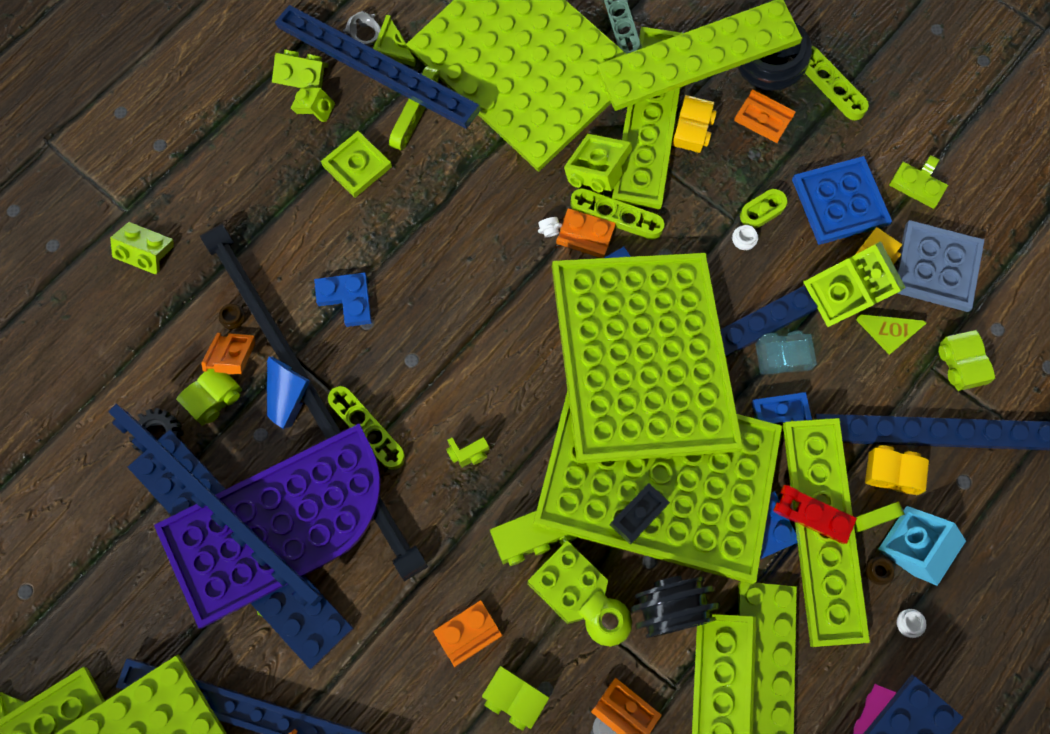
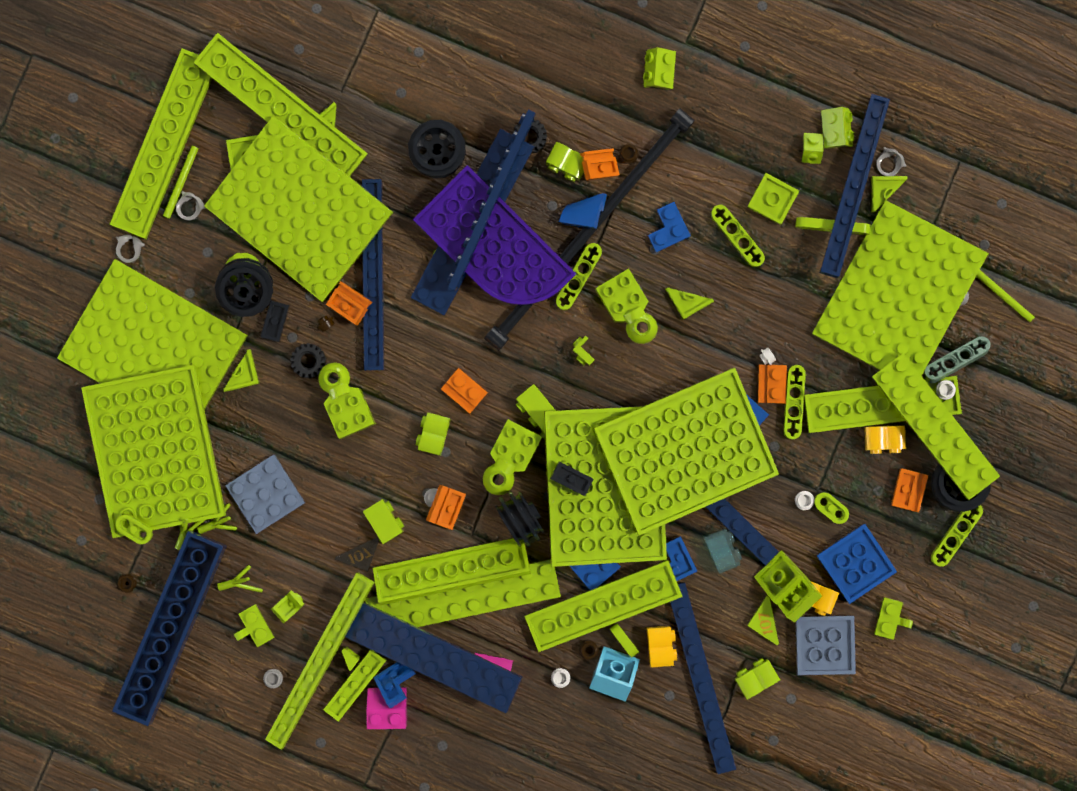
camera: 75 degrees right, 15 degrees up
(137, 575) = (418, 141): none -> black wheel
(385, 214) = (734, 238): none -> lime beam
(421, 374) = (626, 305): none -> lime brick
(449, 303) = (687, 303): none -> lime tile
(597, 162) = (827, 376): lime plate -> none
(654, 36) = (945, 389): none -> white plate
(815, 515) = (609, 596): red plate -> none

